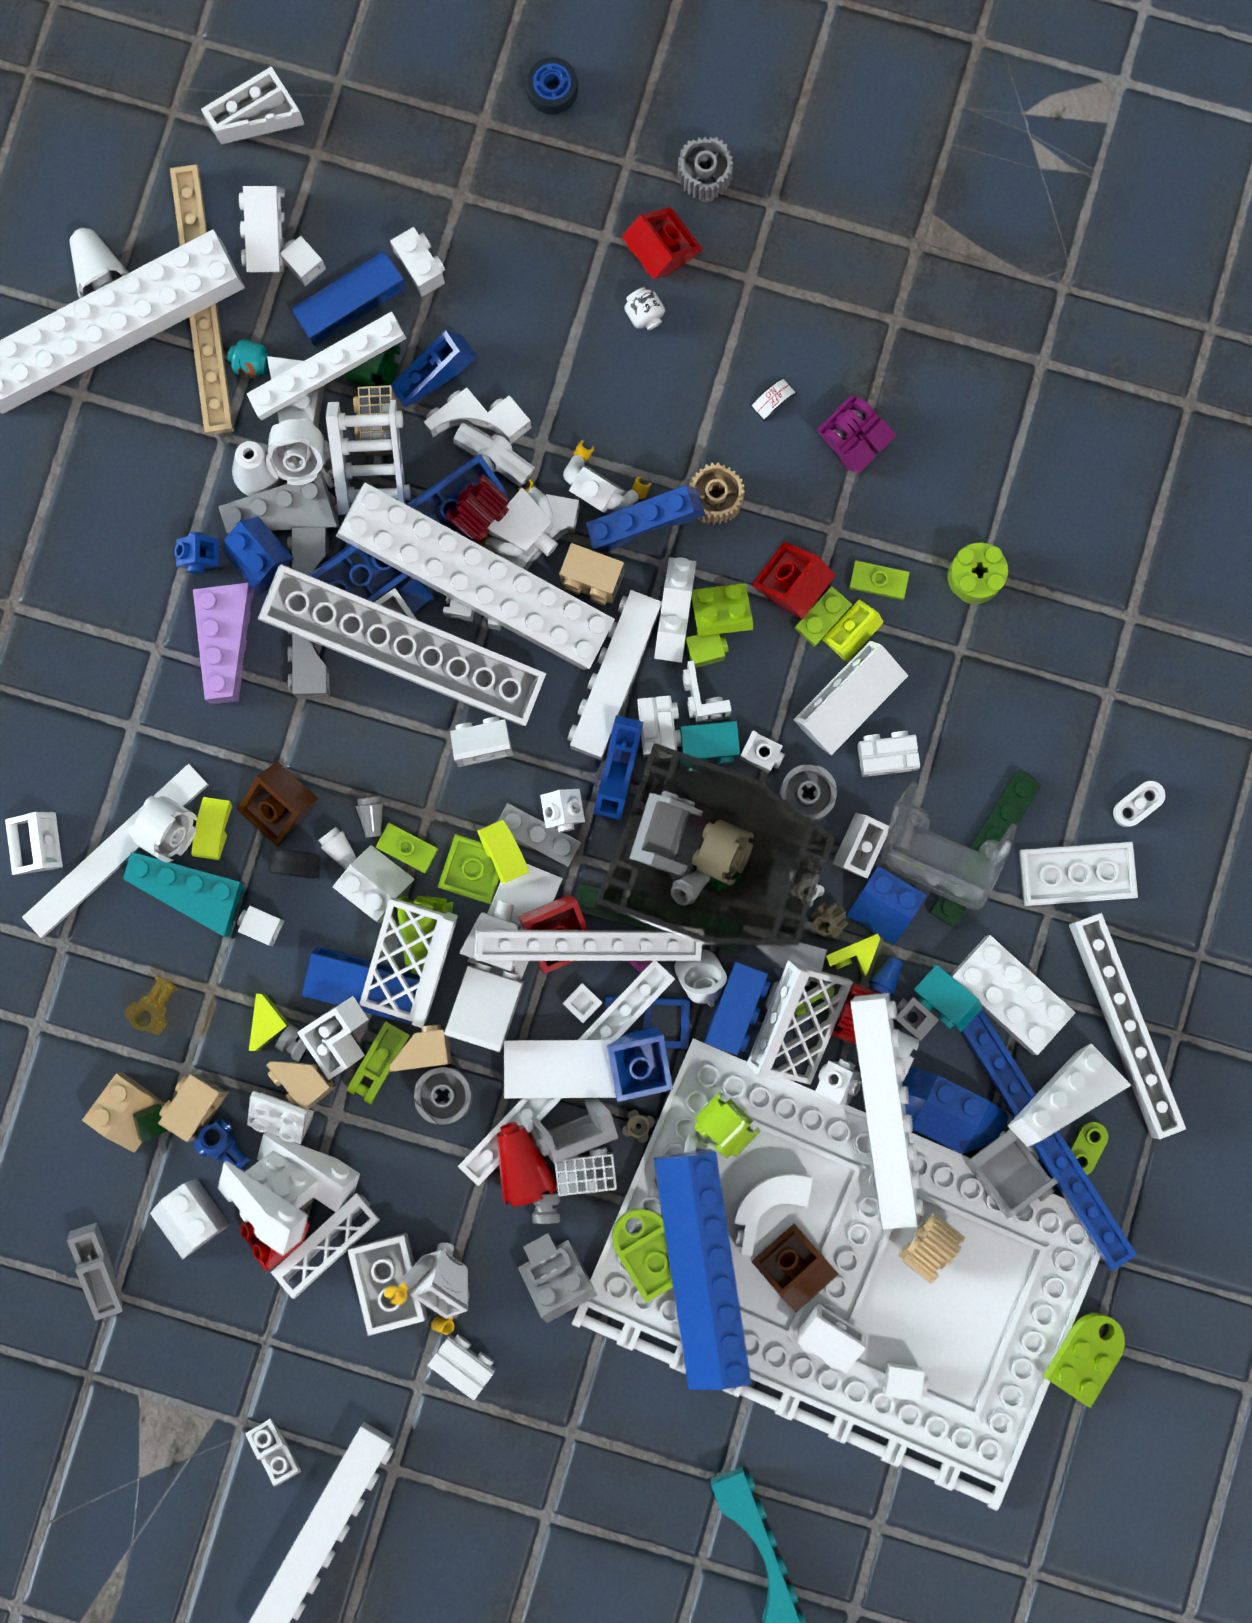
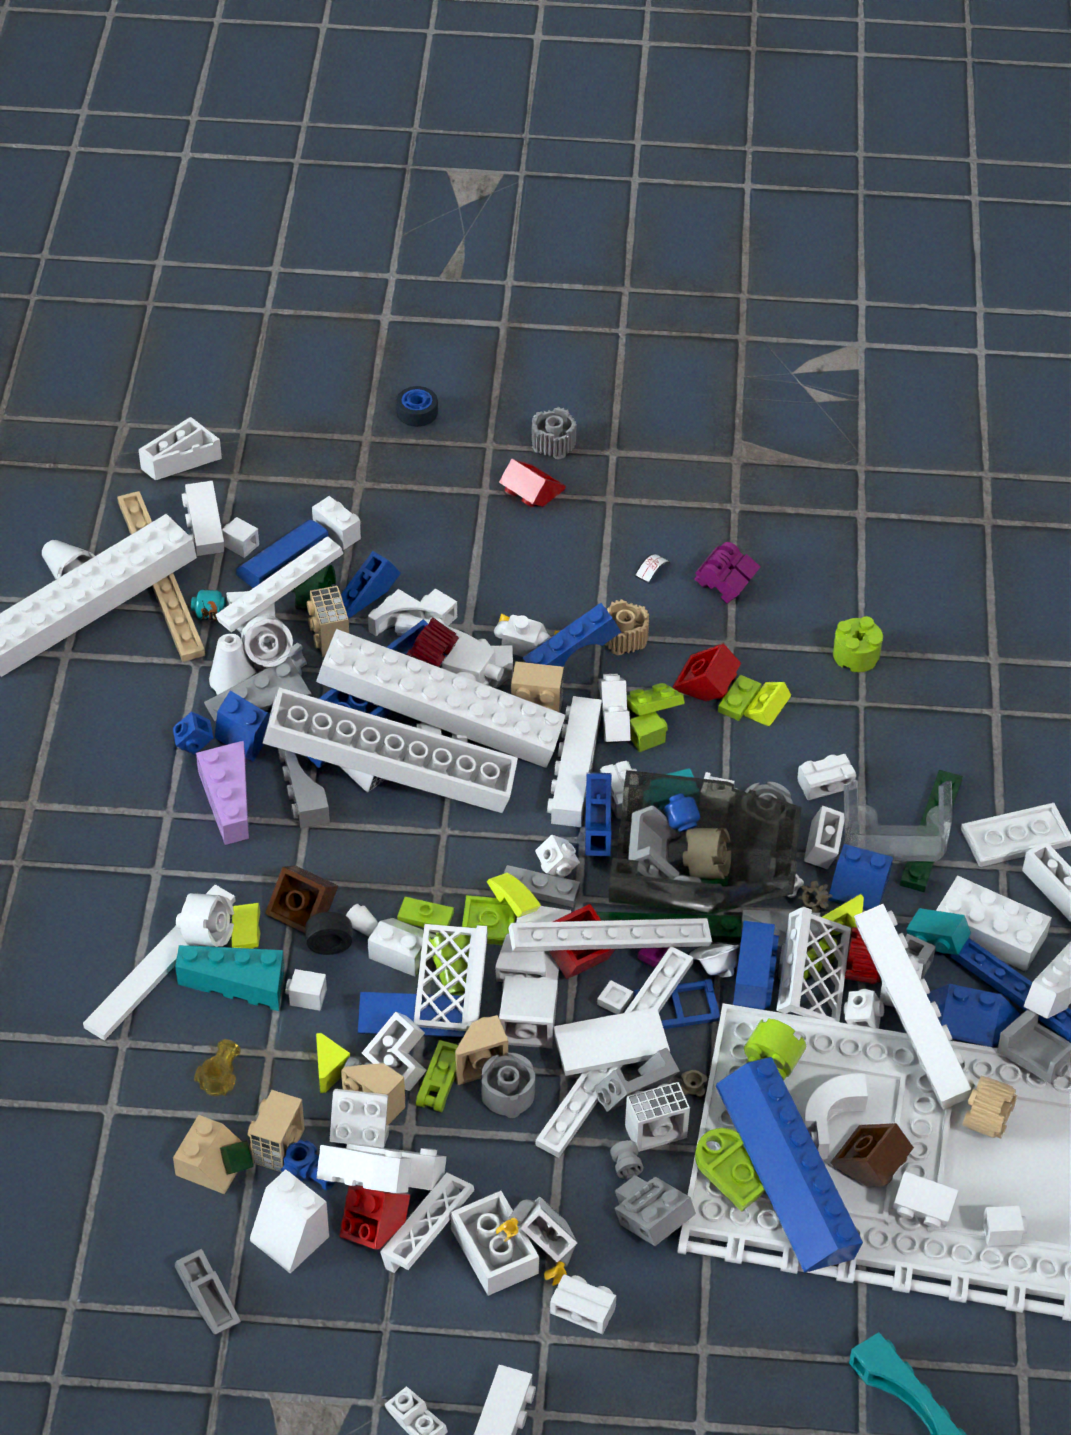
camera: 15 degrees left, 35 degrees down
(43, 839) = (97, 967): white tile -> none
(342, 446) = (306, 628): white fence -> none
(370, 815) = (386, 891): light grey cone -> none
(481, 742) = (474, 824): white slope -> none
(522, 1167) = (596, 1119): red cone -> none
(639, 1064) = (683, 1022): blue slope -> none
(644, 308) = (530, 523): white head -> none
(705, 803) = (682, 813): none -> blue head
(713, 710) = (654, 760): white bracket -> none
(851, 697) = (781, 742): white brick -> none
(879, 580) = (778, 666): lime plate -> none
(1138, 805) = (1045, 780): white plate -> none

